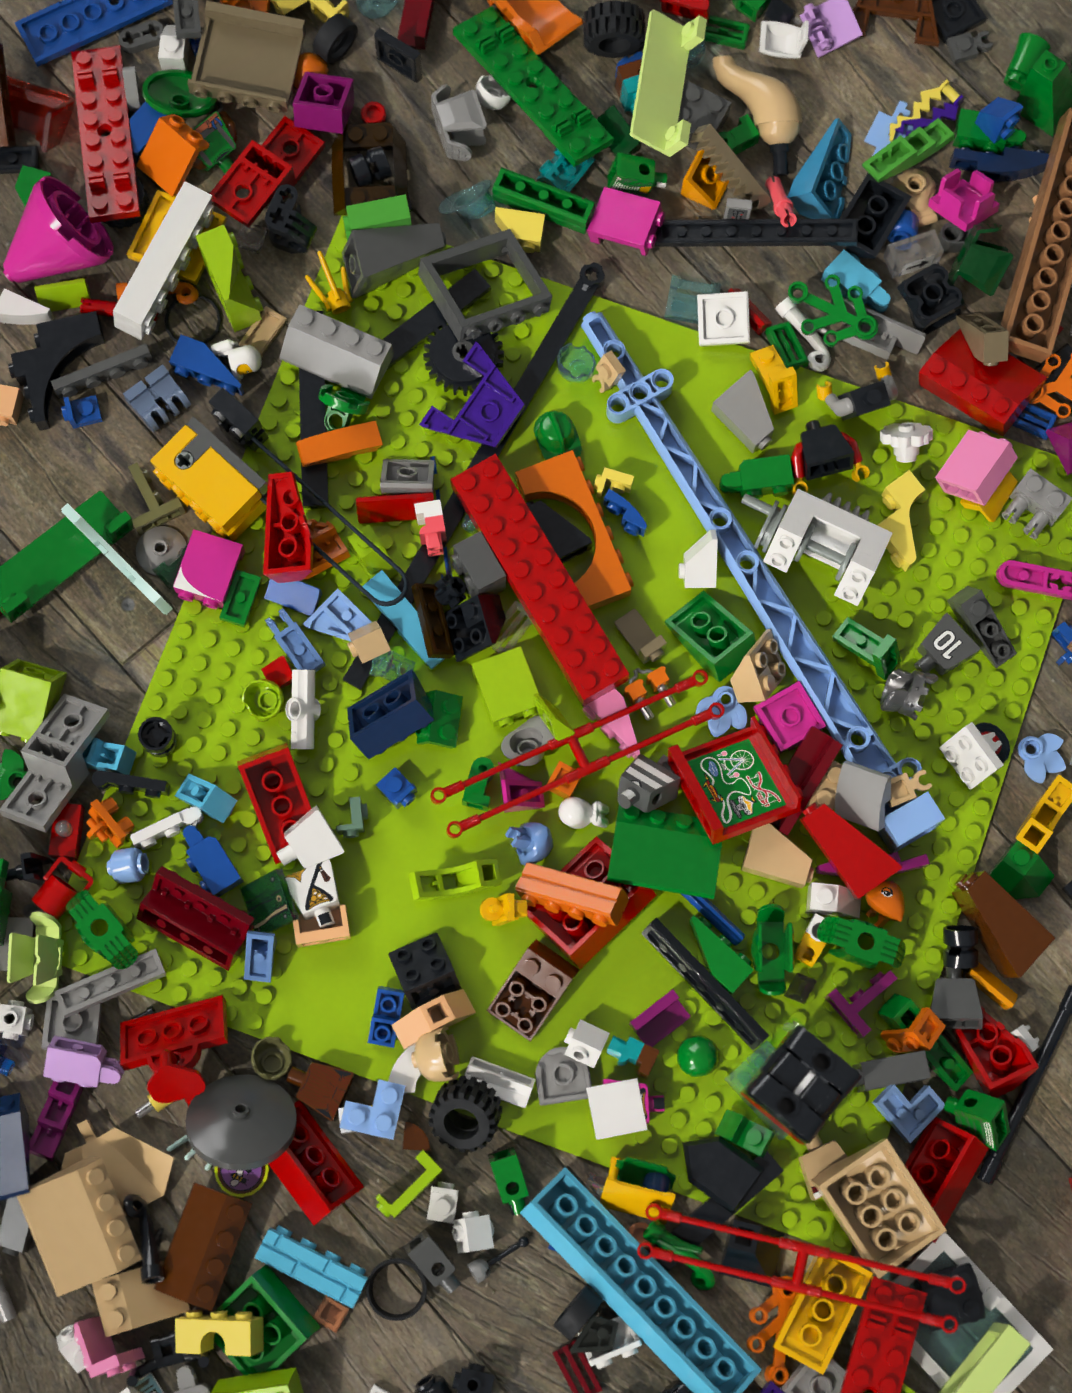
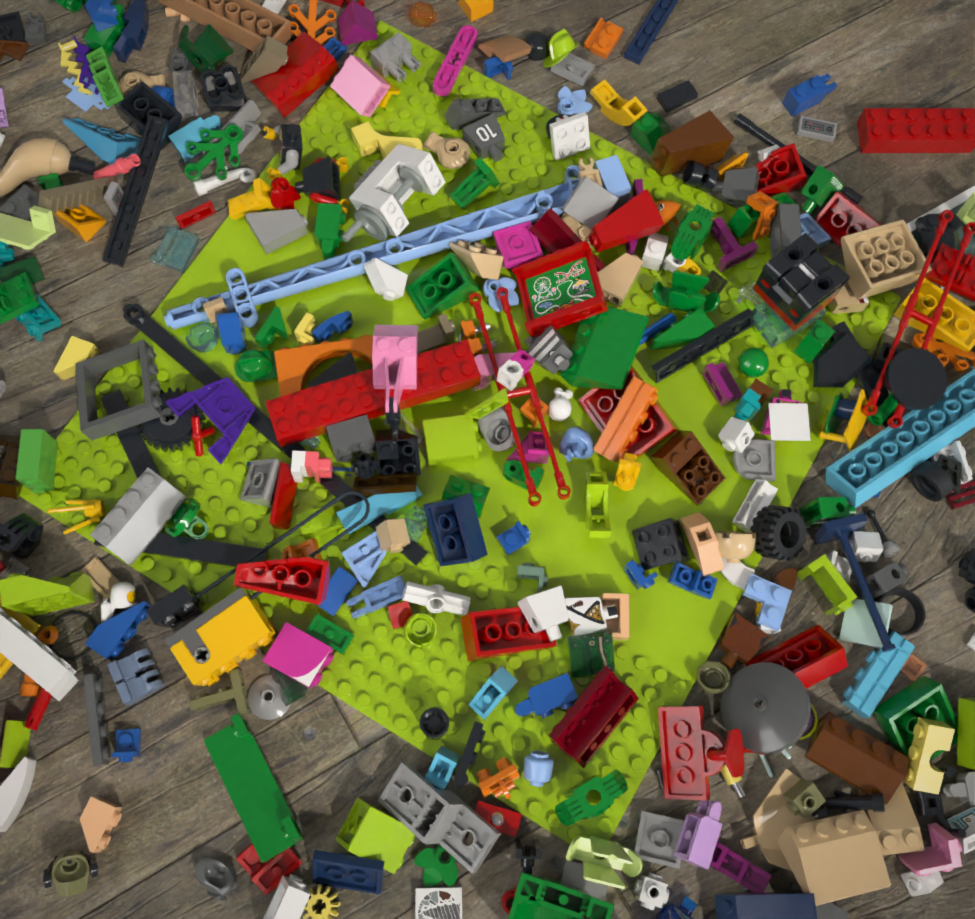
camera: 80 degrees left, 5 degrees down
(55, 892) = (551, 834): red piece -> none
(57, 346) = (76, 775): black arch -> none
(109, 984) = (635, 801): light grey plate -> none
(116, 559) = (270, 734): light aqua tile -> none
(143, 1184) = (803, 798): none -> olive brick
(167, 827) = (512, 727): white hinge -> none
(259, 956) = (633, 670): medium blue slope -> none
(339, 444) = (219, 529): orange slope -> none
(372, 1242) = (858, 624): none -> light aqua tile
(381, 944) = (636, 575): none -> blue bracket
(386, 253) = (65, 461): dark grey slope -> none
(450, 390) = (199, 434): none -> red piece
(470, 202) = (41, 391): clear light blue piece -> none
(484, 1196) = (840, 530): none -> dark blue tile
(537, 197) = (49, 347): green brick -> none
(568, 590) = (394, 367): none -> bright pink slope
(586, 396) = (232, 333): none -> blue slope
(605, 742) = (515, 369): none -> white leg
(614, 442) = (272, 326): none -> green slope
(626, 220) = (95, 279): dark pink panel -> none
(634, 175) = (61, 268): green torso -> none
(706, 1267) = (916, 379): none -> black tile
(723, 318) = (197, 227): white tile -> none
(789, 412) = (283, 194): none -> red plate
(803, 360) = (229, 190): green tile -> none
(906, 439) = (326, 126): white plant -> none
(906, 692) = (514, 166): flat silver hair -> none
(913, 606) = (450, 152): none -> tan animal
(965, 202) = (156, 52): dark pink panel -> none

